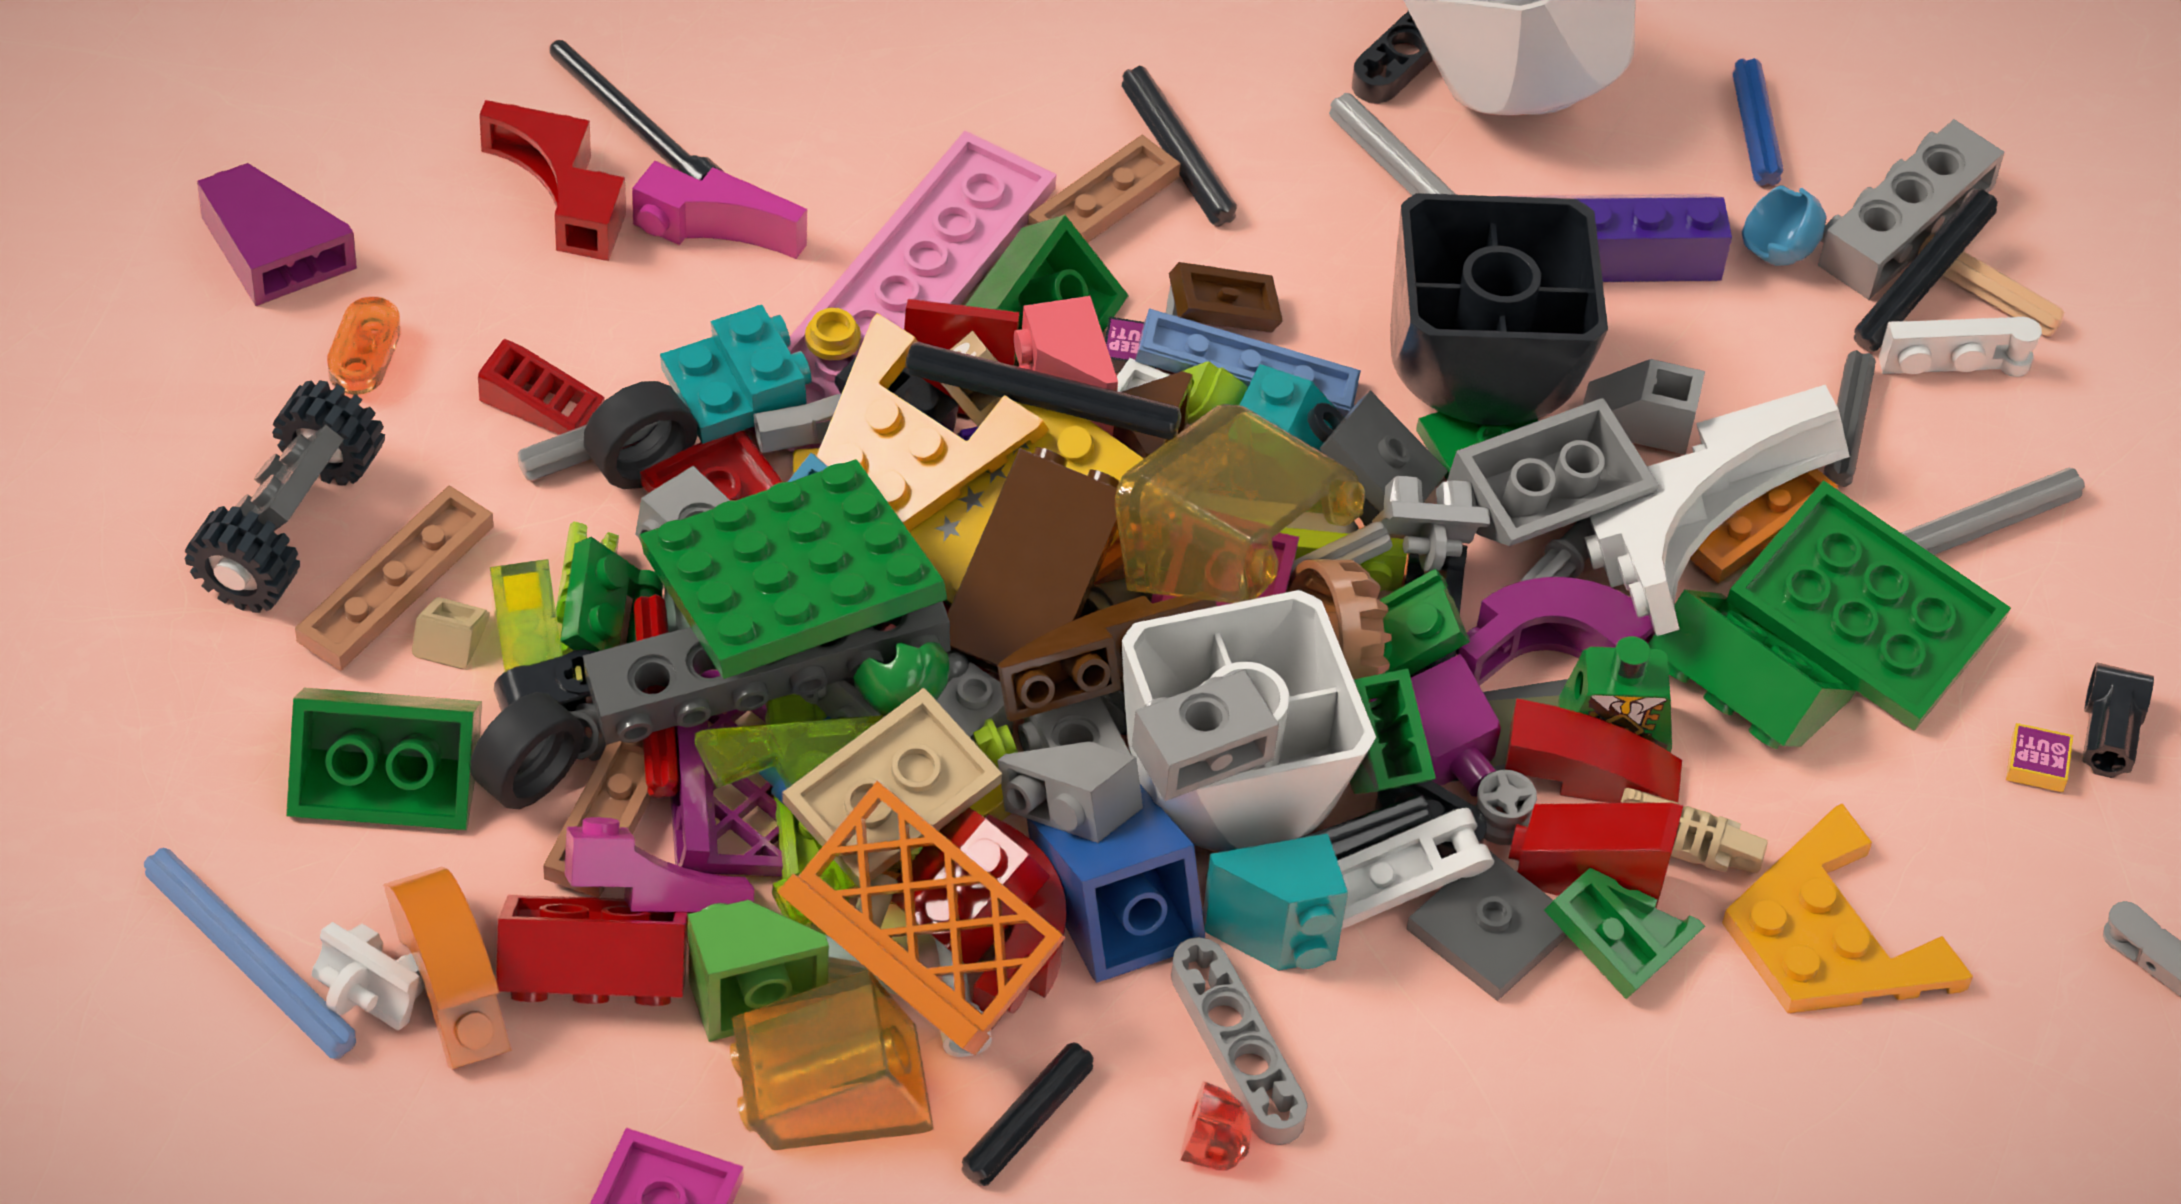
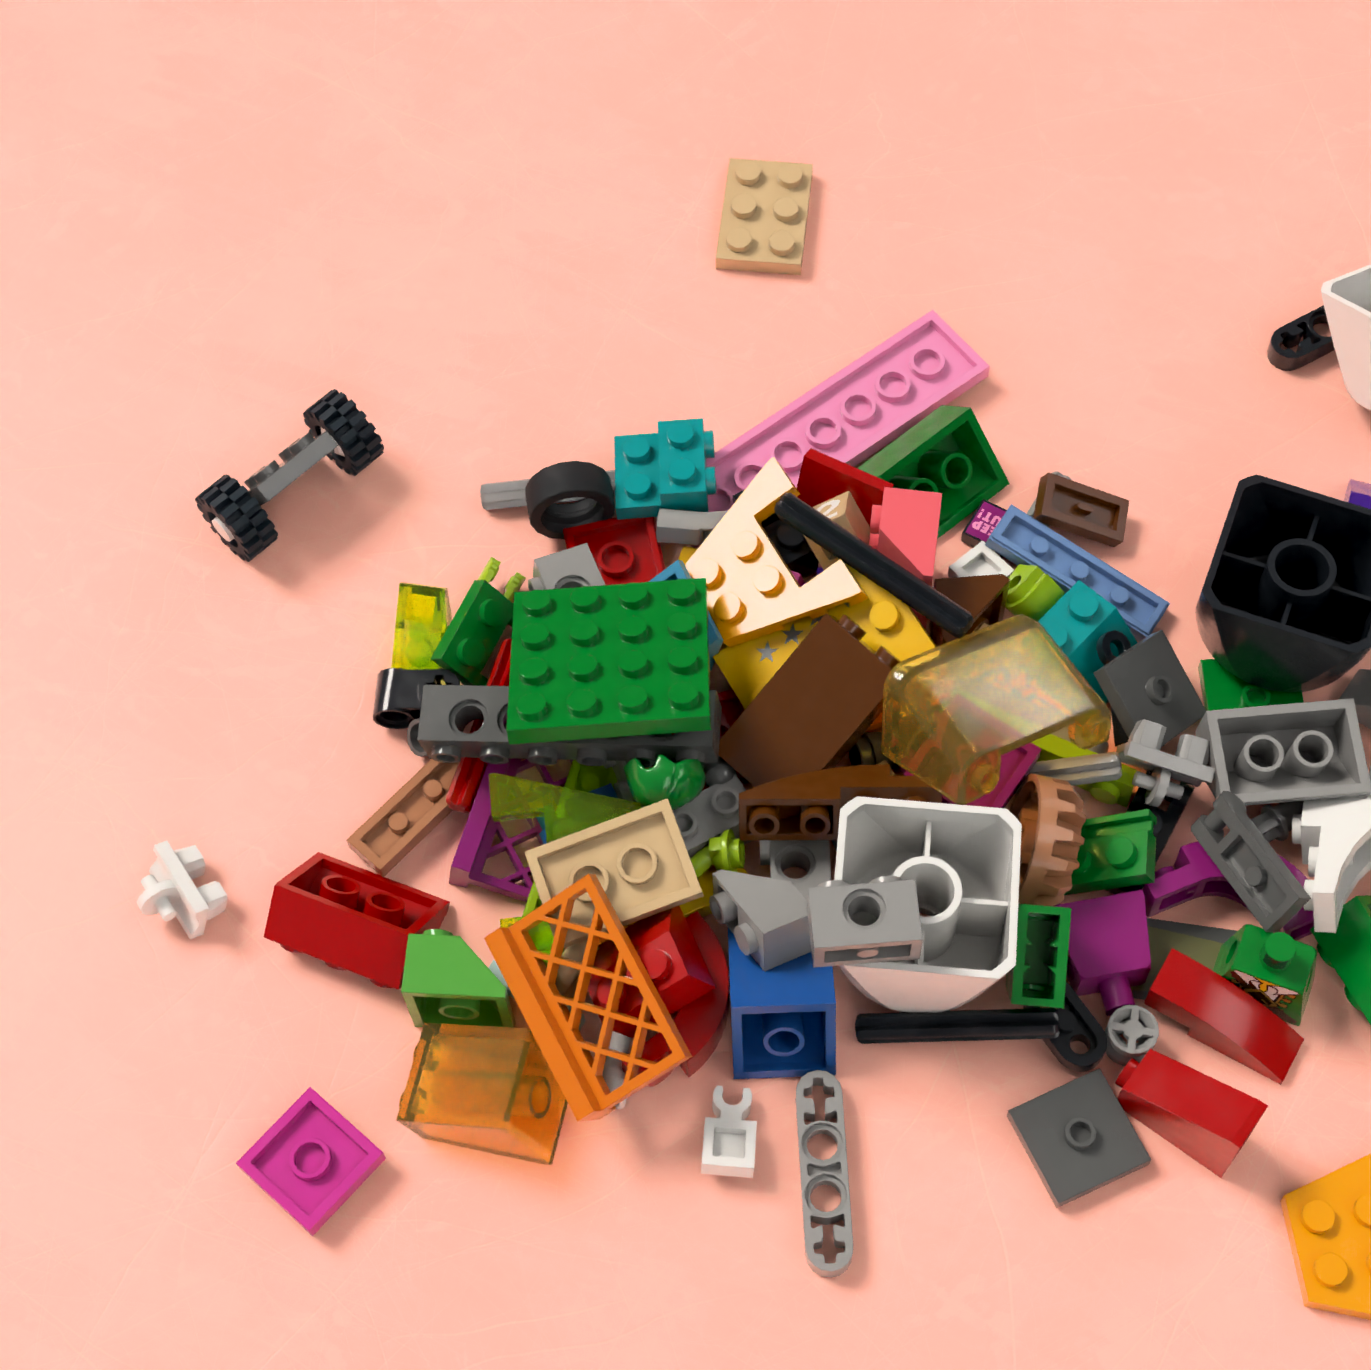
camera: 30 degrees right, 10 degrees up
(250, 953) = (110, 840): medium blue axle -> none
(273, 233) = (380, 258): magenta slope -> none
(359, 356) = (405, 368): clear orange plate -> none
(382, 758) = (272, 709): green slope -> none
(394, 577) = (347, 562): nougat plate -> none
(449, 632) = (368, 617): tan slope -> none
(453, 964) = (232, 900): orange arch -> none
(514, 366) = (503, 416): red slope -> none
(527, 750) = (370, 741): black tyre -> none
(557, 154) = (619, 294): red arch -> none
(607, 857) = (388, 857): dark pink slope -> none
(629, 113) = (713, 292): black piece -> none
(716, 208) = (713, 323): dark pink slope -> none
(717, 79) = (764, 216): none -> tan plate
(833, 334) = (750, 455): yellow plate -> none
(1027, 1114) = (627, 1180): black axle -> none
(1112, 188) = (1026, 391): nougat plate -> none
(1122, 1039) = (729, 1138): none -> white plate
(1179, 143) = (1102, 366): black axle -> none
(1216, 1130) = (771, 1251): clear red piece -> none
(1278, 902) = (898, 1068): teal slope -> none
(1385, 147) = (1278, 425): light grey axle -> none
(1411, 865) = (1017, 1067): white plate -> none
(1565, 586) = (1249, 863): none -> dark grey plate
(1620, 929) = (1182, 1186): green wing -> none
(1709, 838) = (1289, 1118): tan hinge -> none

